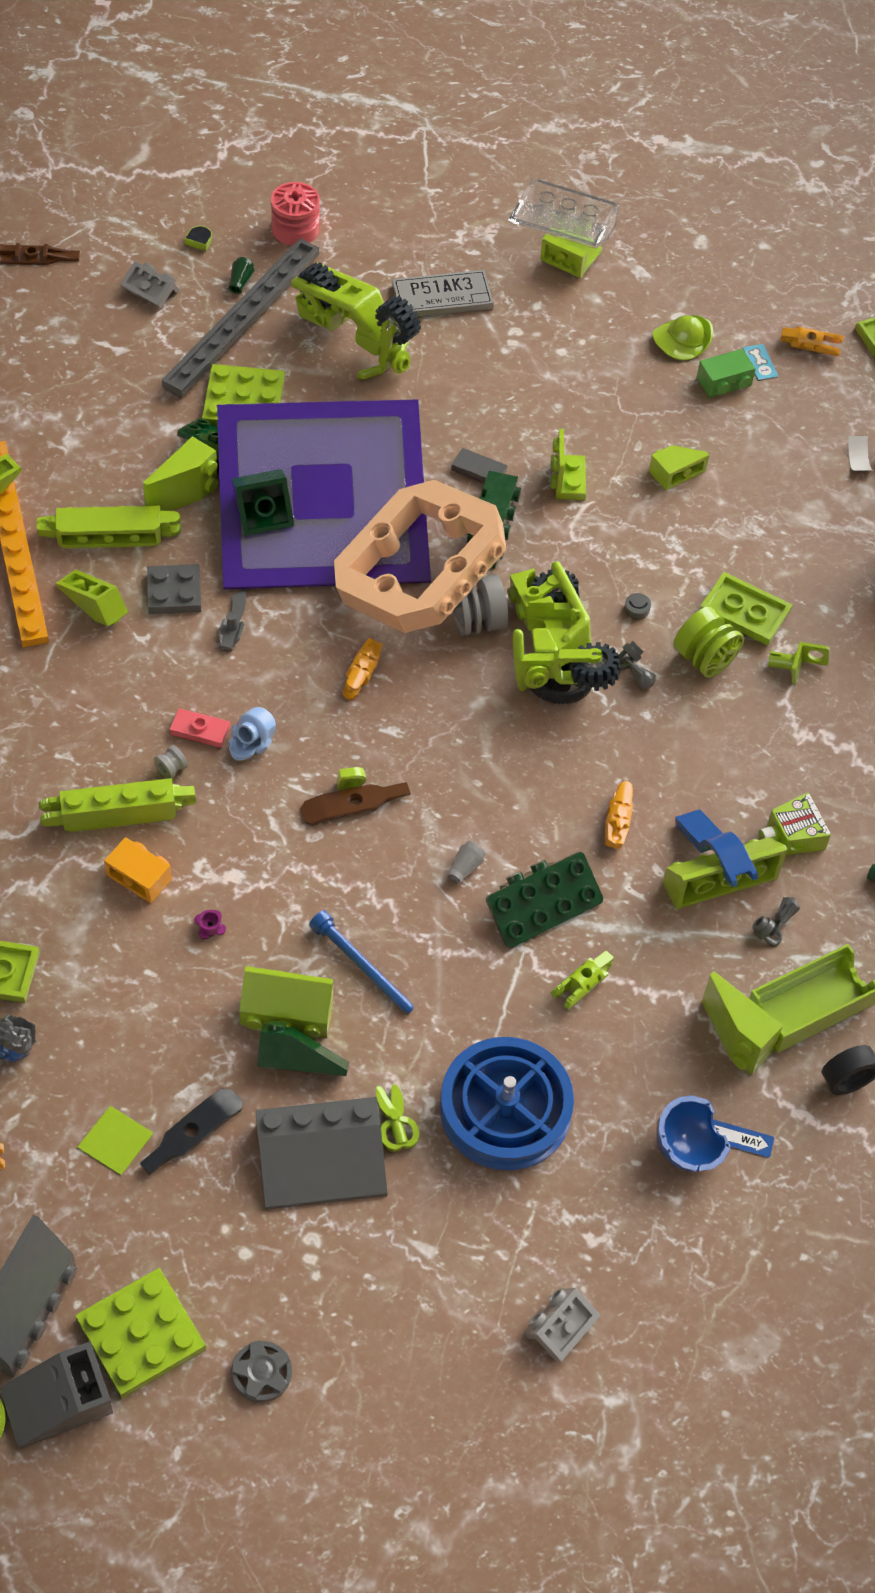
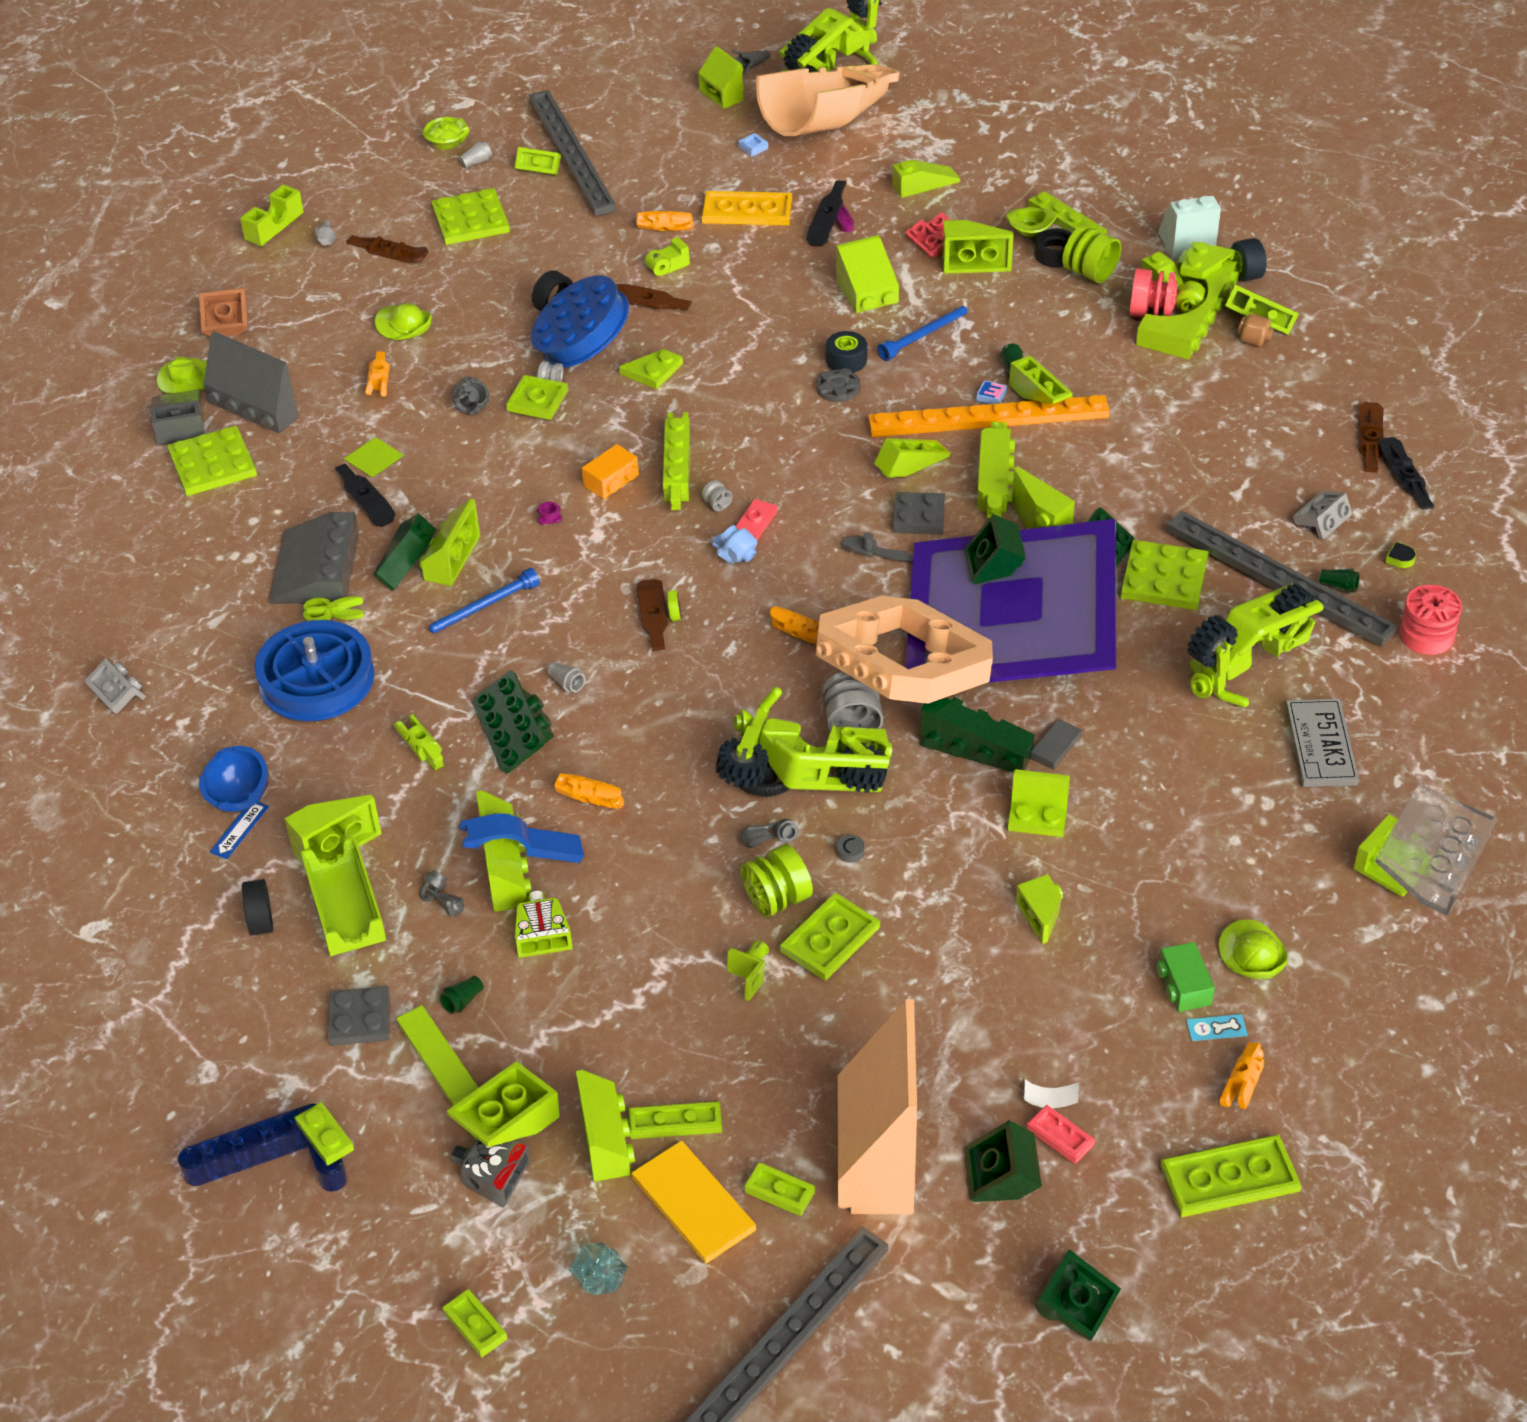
camera: 105 degrees right, 10 degrees down
(82, 231) = (1404, 470): none -> black piece
(261, 1371) = (154, 518): dark grey wheel -> none

